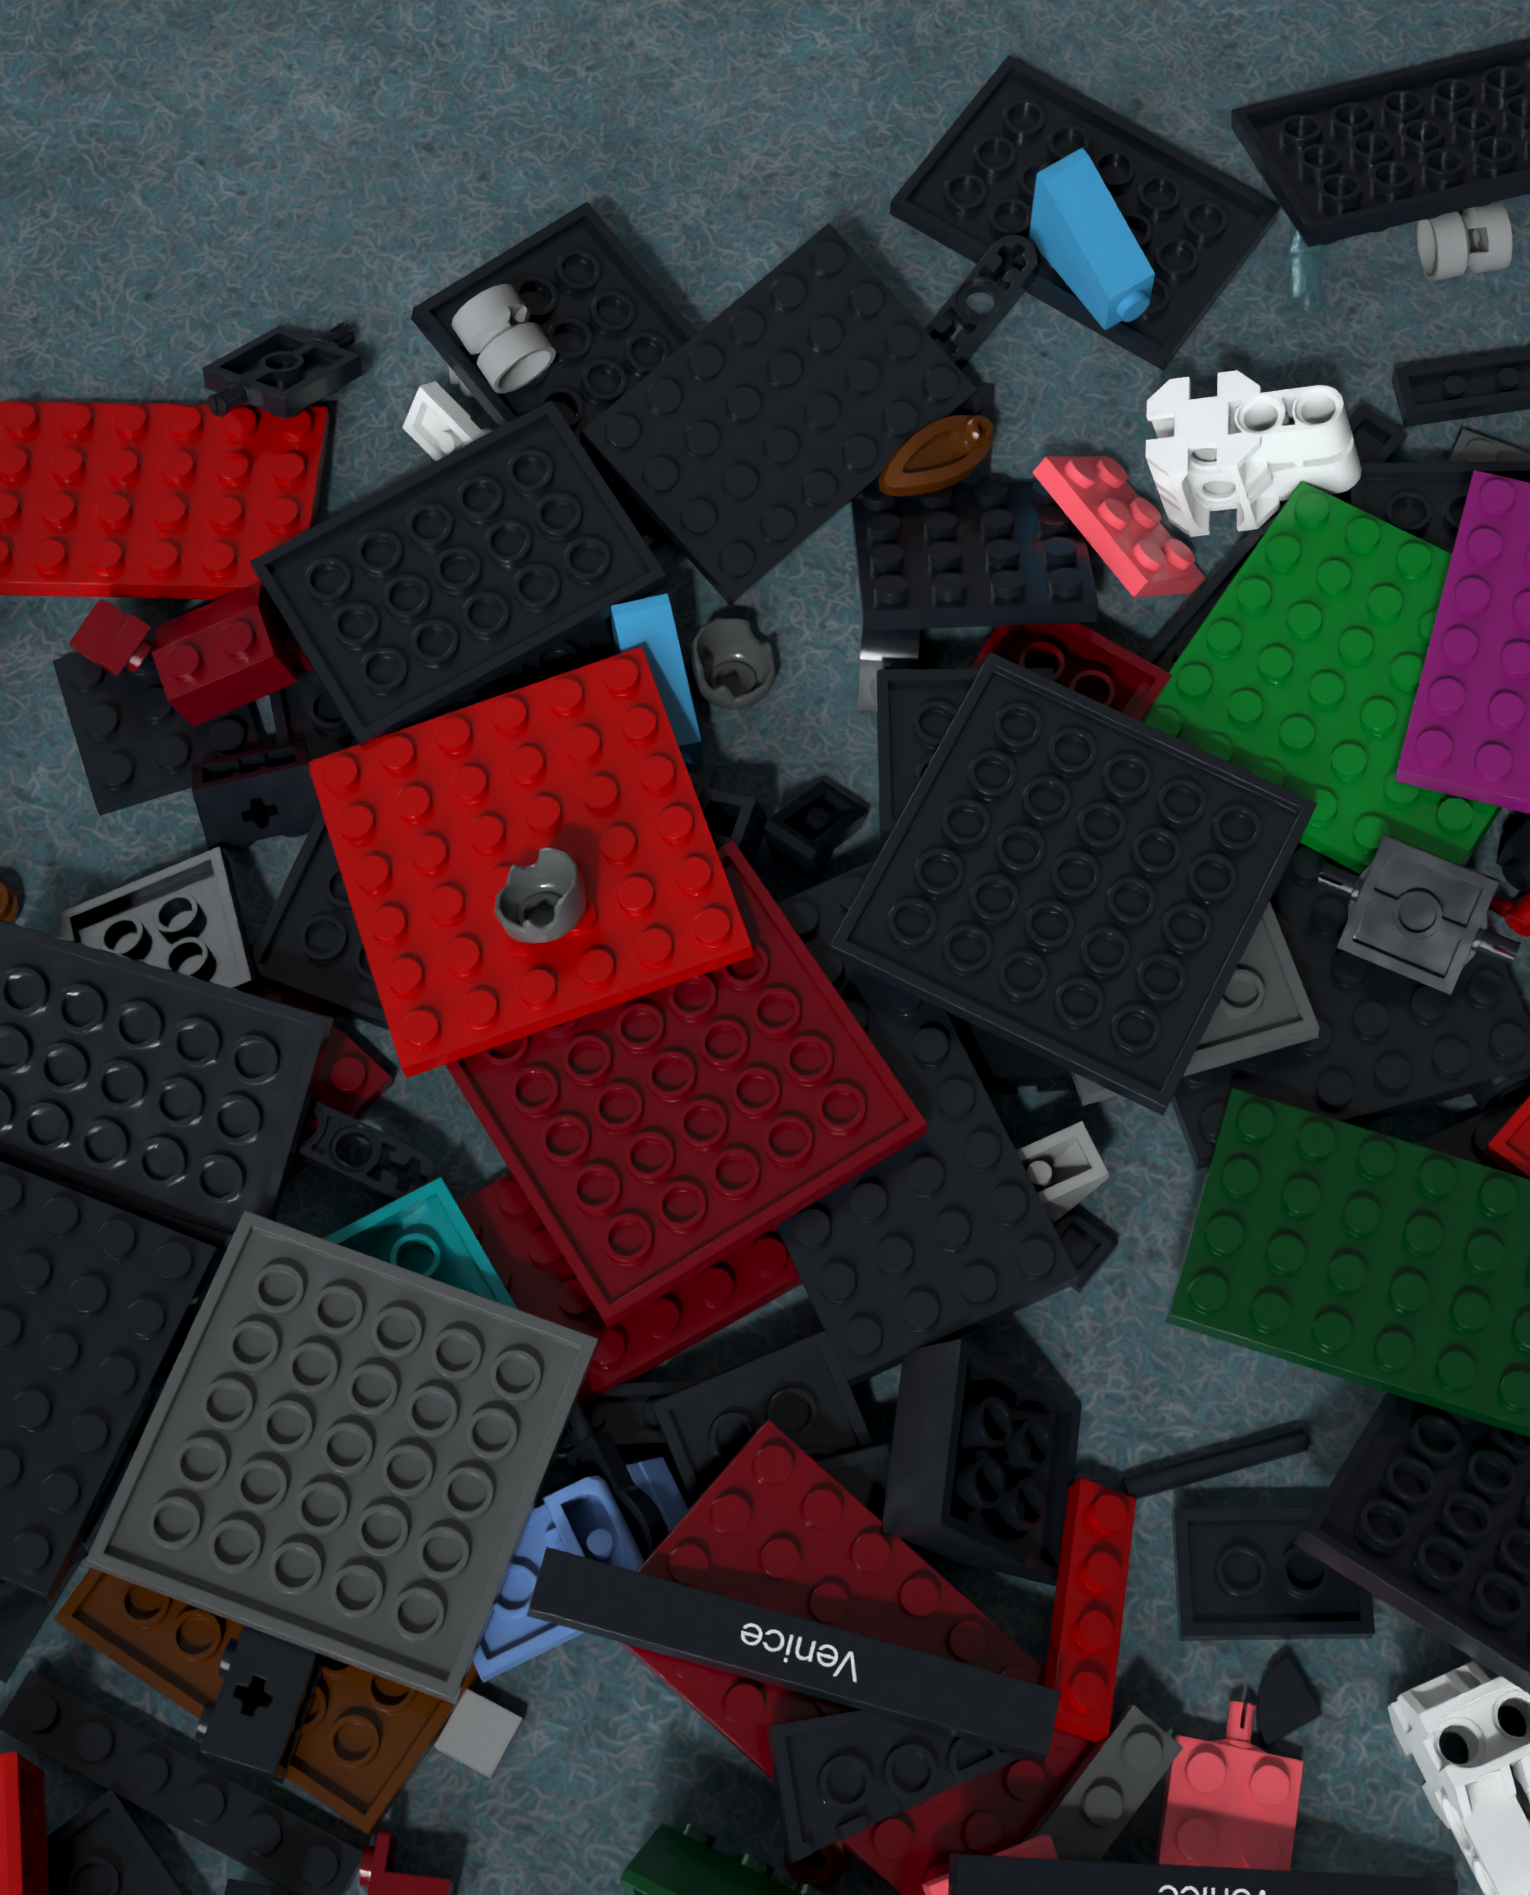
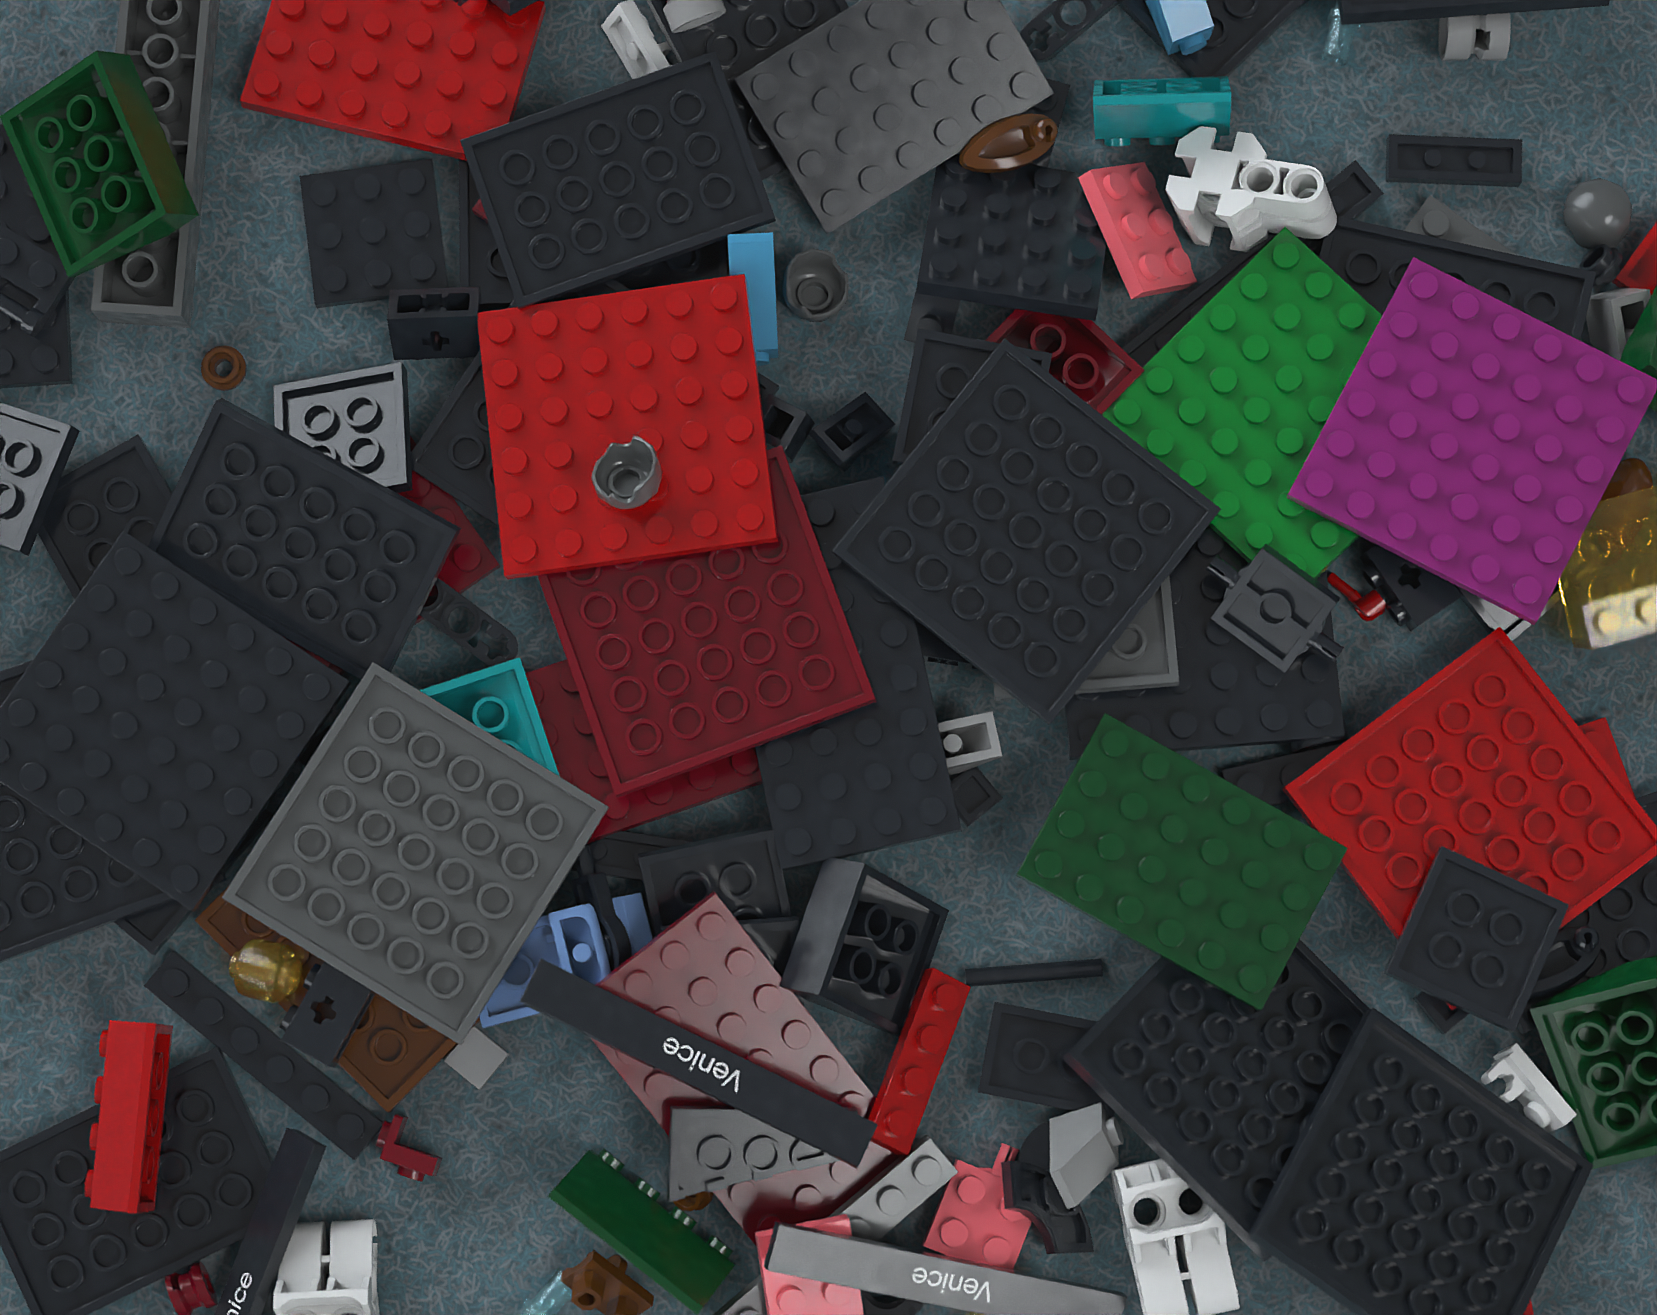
camera: 10 degrees right, 15 degrees up
(112, 639) = (347, 178): dark red bracket -> none
(163, 1663) = (265, 970): none -> clear yellow head
(222, 656) = (427, 204): dark red slope -> none
(1111, 376) = (1160, 108): none -> teal slope
(1333, 1788) = (1036, 1196): none -> black tile
(1348, 1680) = (1083, 1151): none -> light grey slope

